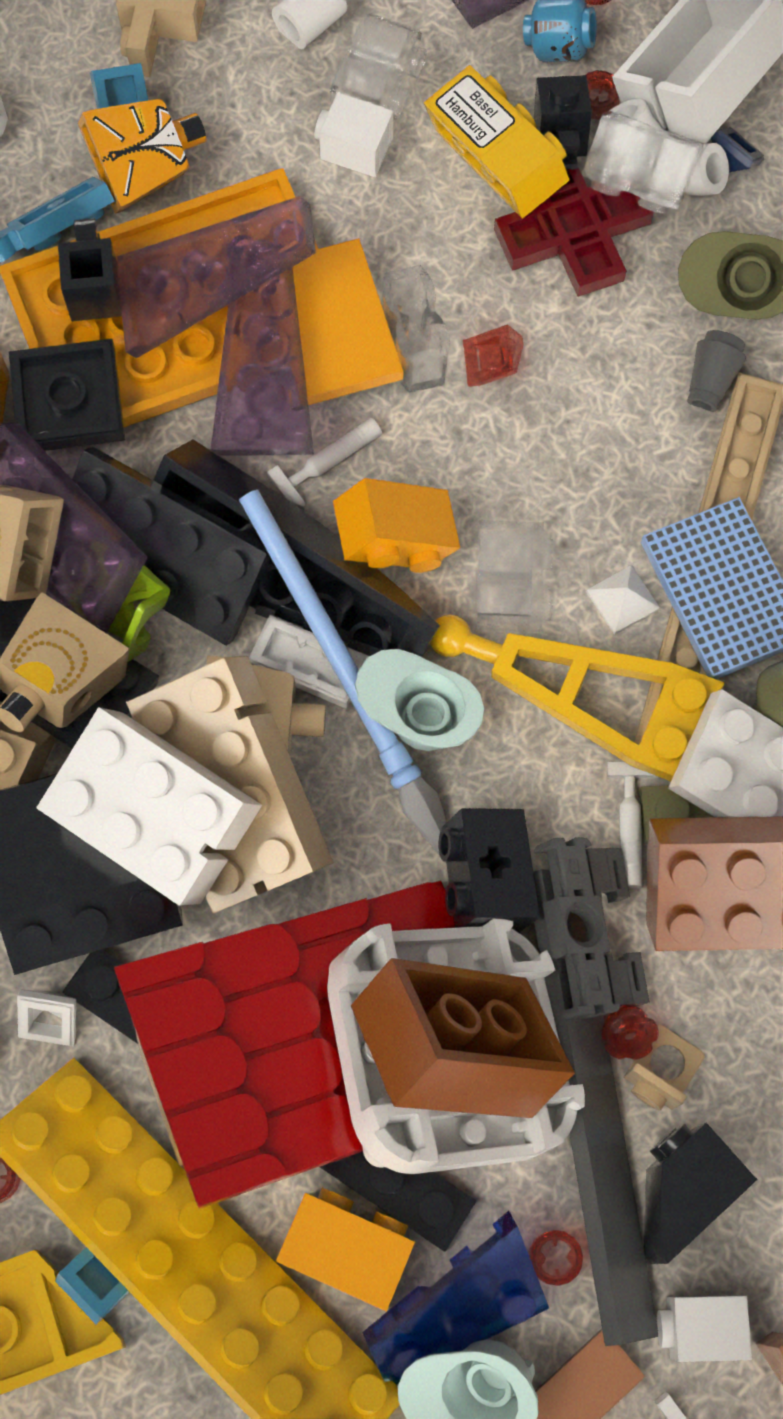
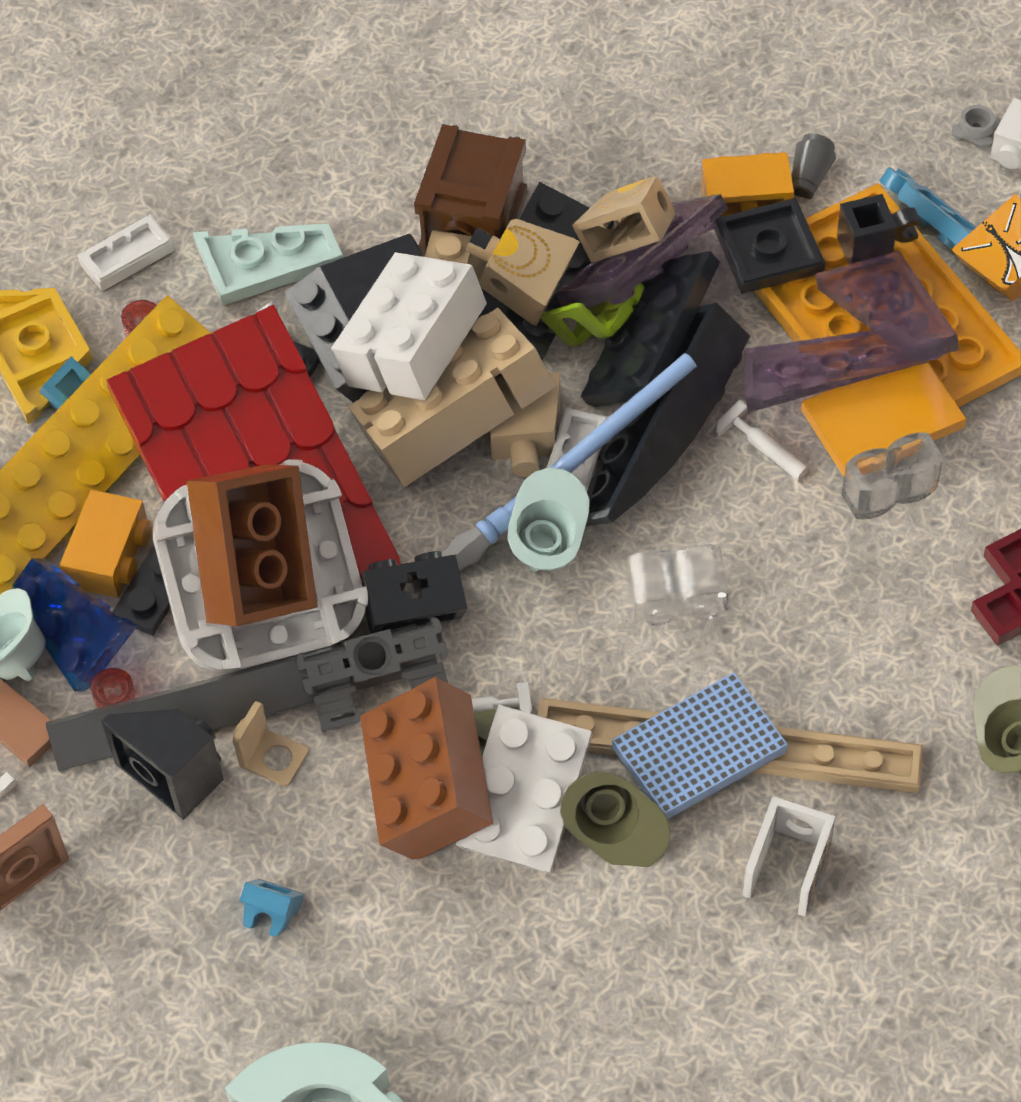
camera: 85 degrees right, 15 degrees down
(396, 525) = (699, 484): light orange brick -> none
(498, 355) = (899, 557): clear red slope -> none
(623, 599) = (680, 678): white slope -> none
(624, 1022) = (295, 719): clear red plate -> none
(669, 725) = (585, 714): yellow plate -> none
(705, 1328) = (67, 793): white brick -> none
(715, 368) = (919, 723): dark grey cone -> none

